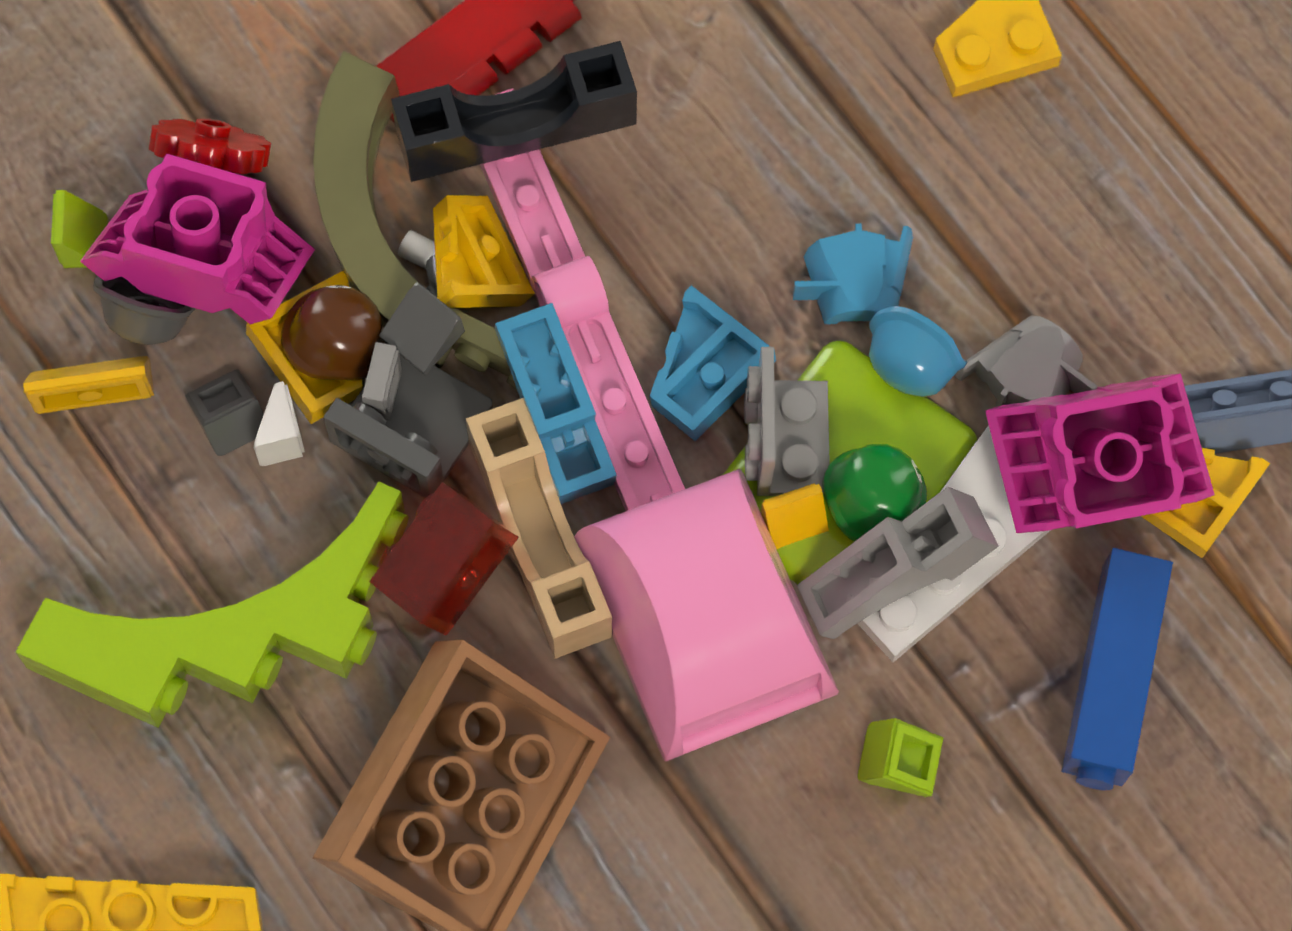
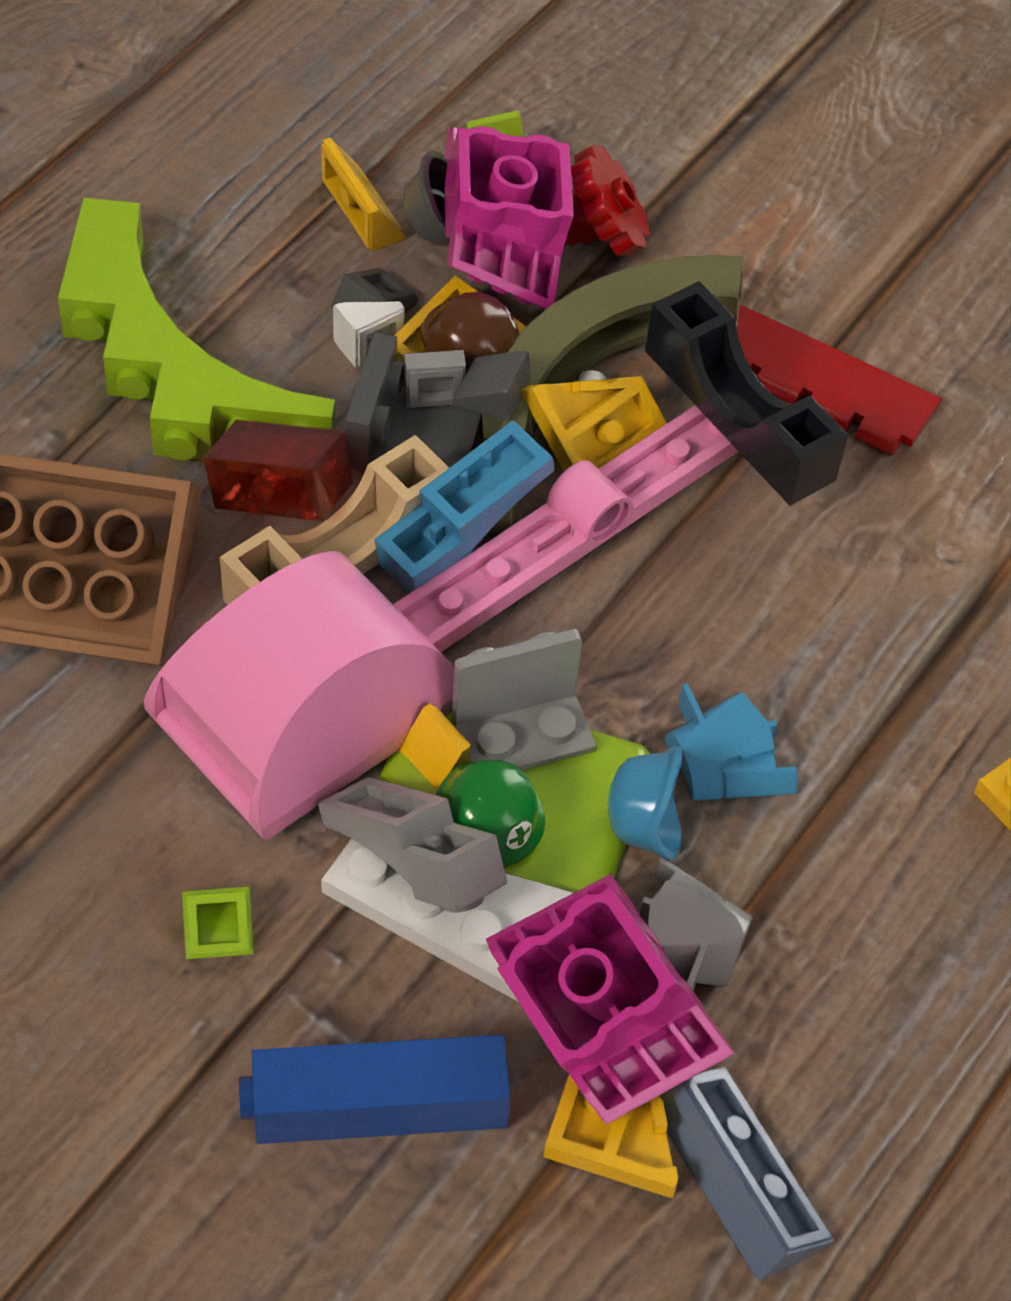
camera: 70 degrees right, 15 degrees down
(704, 365) = (603, 634): dark azure wing -> none

